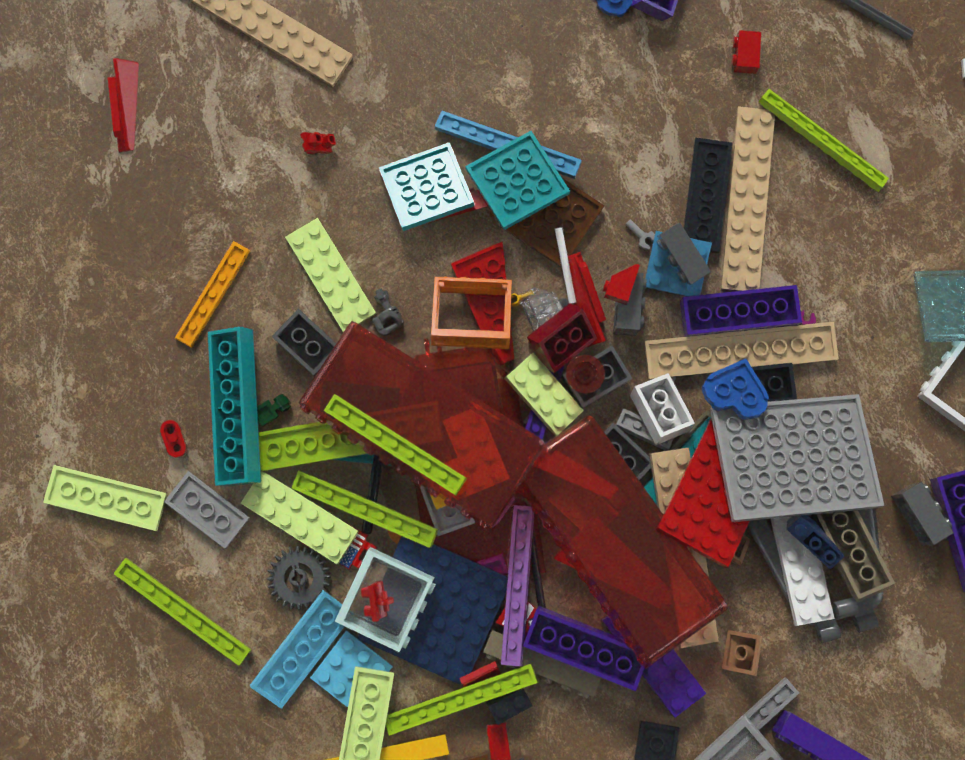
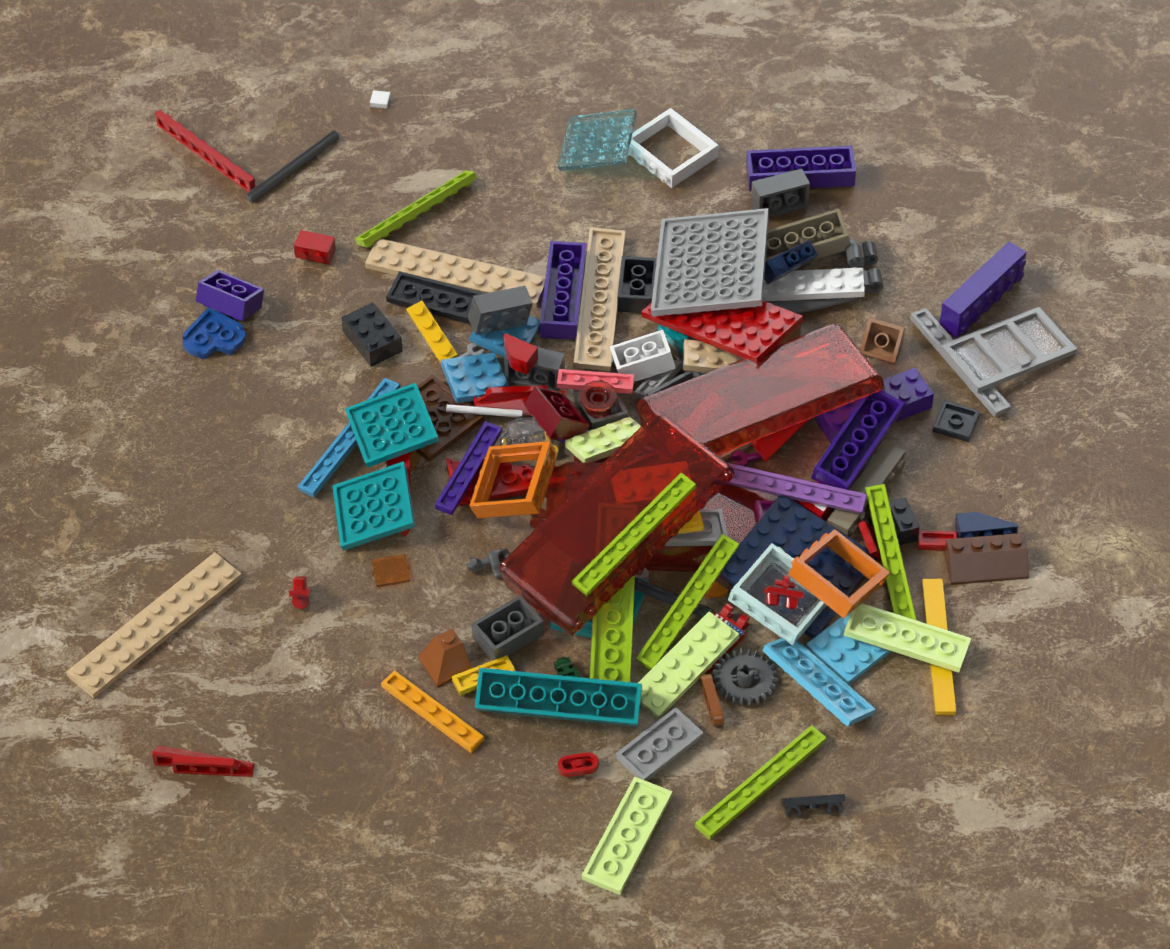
camera: 75 degrees left, 30 degrees down
(167, 663) = (813, 802): none -> black plate
(262, 338) = (467, 680): none -> yellow plate
(264, 550) = (711, 700): none -> dark orange beam
(269, 294) = (444, 657): none -> dark orange slope
(330, 274) = (440, 606): yellowish green plate -> none
(365, 220) = (390, 570): none -> clear orange piece
(398, 680) = (824, 589): none -> orange window
(488, 266) = (468, 468): none -> dark purple plate
(609, 247) = (473, 375): none -> dark azure plate
(612, 365) = (577, 379): none -> coral plate
(643, 134) = (372, 334): none -> black brick
(658, 193) = (431, 331): none -> yellow plate
(736, 389) = (639, 291): blue plate -> none

